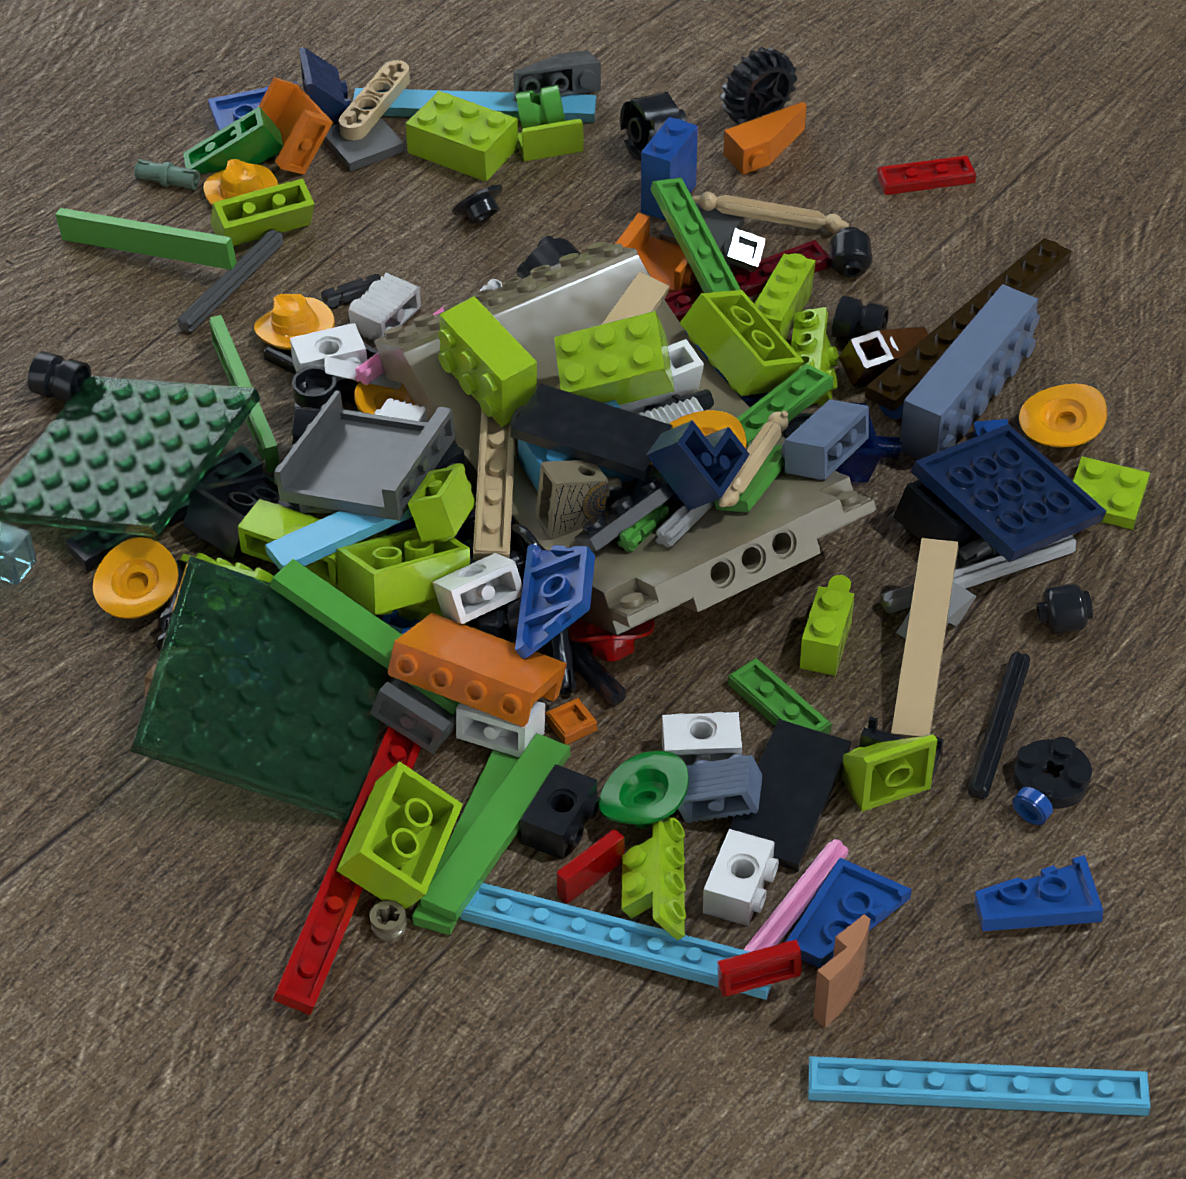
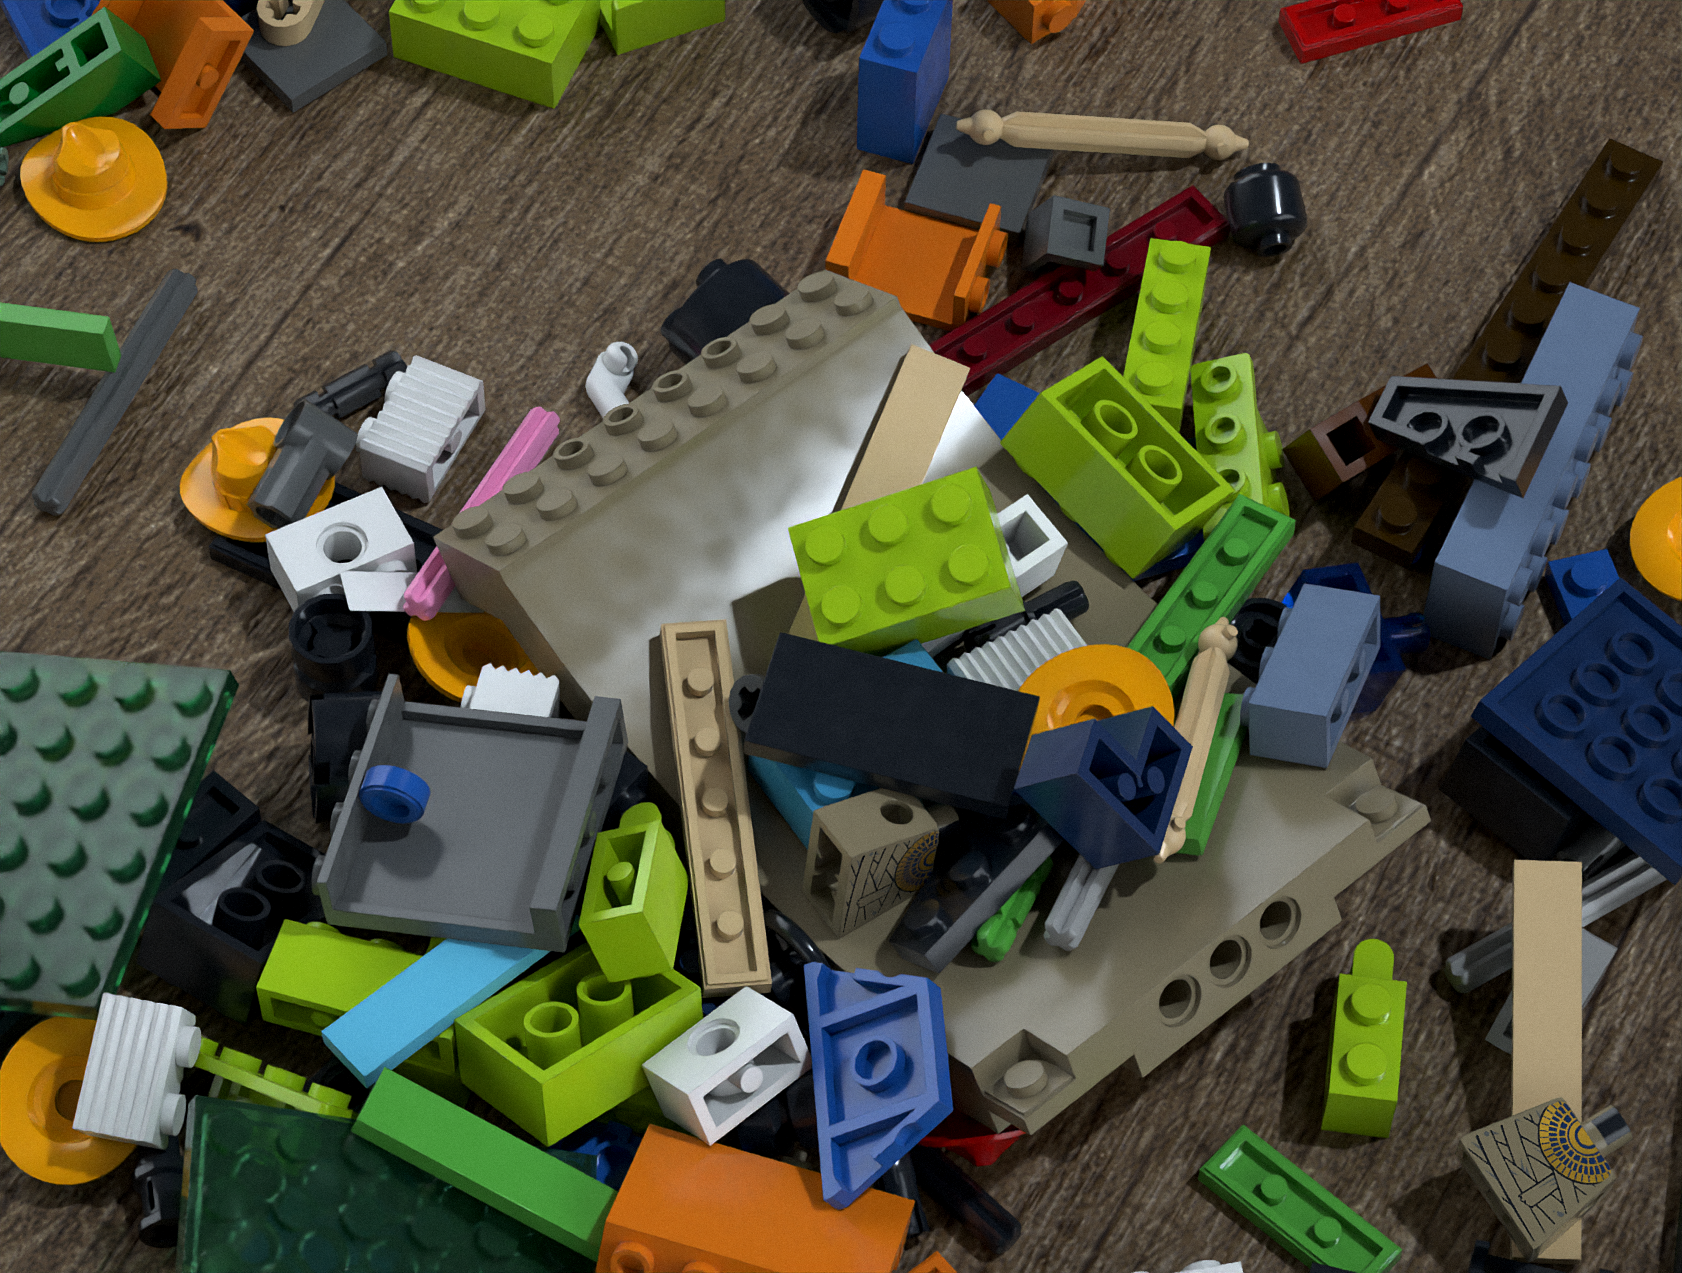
camera: 10 degrees left, 10 degrees up
(165, 560) = (137, 1071): none -> white brick
(238, 377) = (191, 645): bright green tile -> none
(257, 212) = (149, 240): lime brick -> none
(318, 310) = (308, 453): none -> dark grey piece
(325, 440) = (394, 794): none -> blue tile
(480, 204) = (560, 178): black piece -> none
(486, 360) = (671, 593): lime brick -> none
(693, 236) = (991, 239): bright green tile -> none
(855, 319) = (1310, 366): black wheel -> none
(912, 685) = (1543, 1169): none -> dark tan torso
(935, 340) = (1472, 426): none -> black wing

